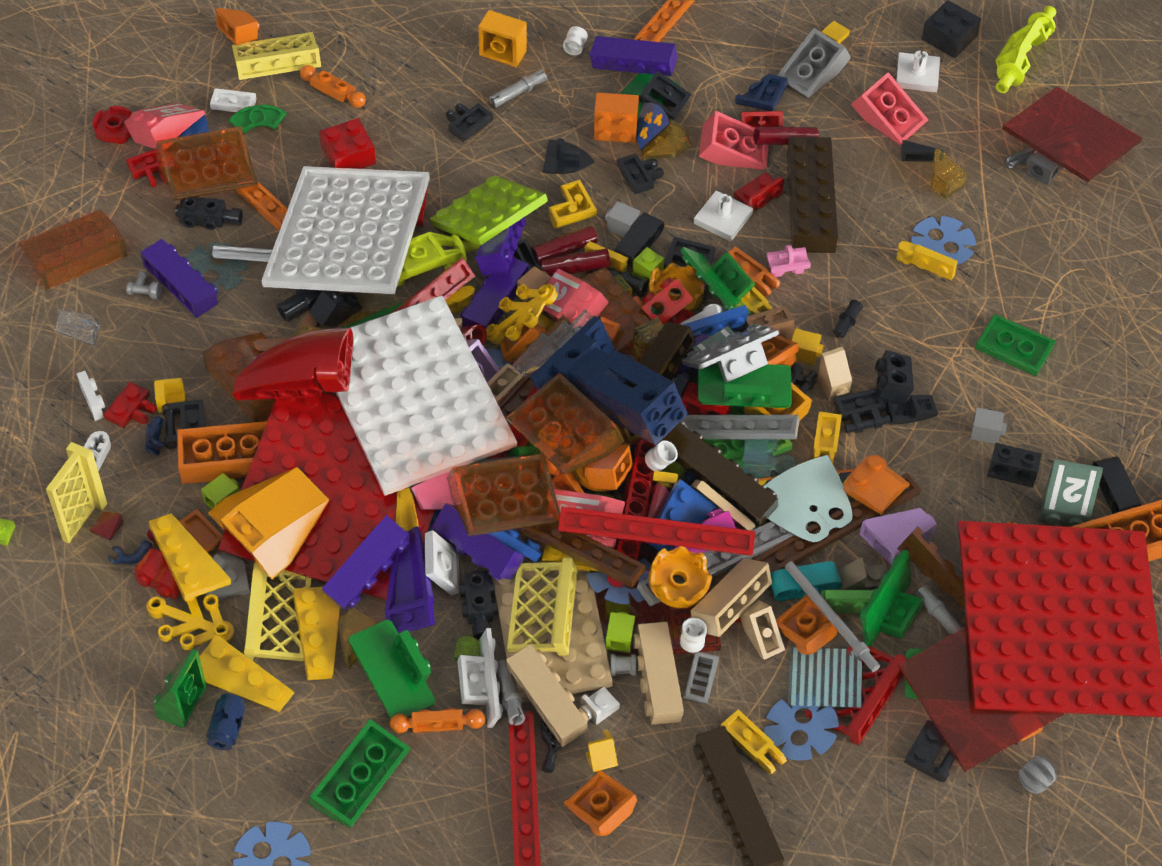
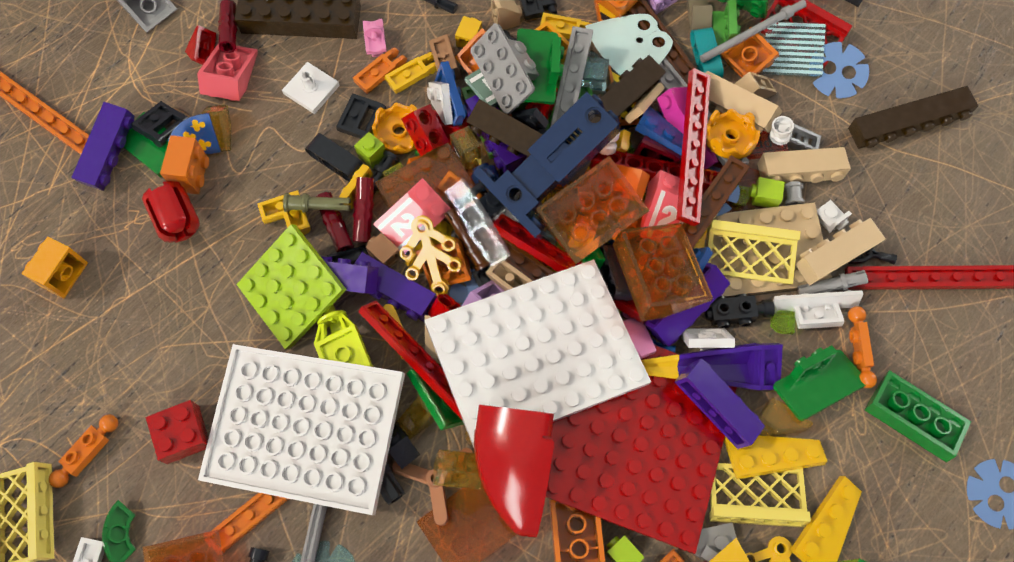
camera: 85 degrees left, 15 degrees up
(226, 722) = (868, 535): dark blue piece -> none
(272, 518) = (672, 498): light orange wedge -> none
(469, 122) = (160, 306): black hinge -> none
(524, 85) = (118, 252): light grey pin -> none
(565, 158) = (219, 220): black shield -> none
(566, 114) = (171, 212): none -> red cylinder
(575, 40) = (69, 202): white wheel -> none
(578, 213) = (305, 203): none -> olive pin
(602, 753) = (883, 213): yellow panel -> none
(602, 804) = (928, 217): orange slope -> none
(621, 218) = (309, 169): light grey brick -> none
(639, 174) = (251, 156): black hinge -> none
(725, 277) = (397, 82): green bracket -> none
(753, 741) = (854, 105): yellow hinge -> none
(760, 191) = (287, 55): red bracket -> none
(764, 93) = (168, 41): dark blue wing -> none

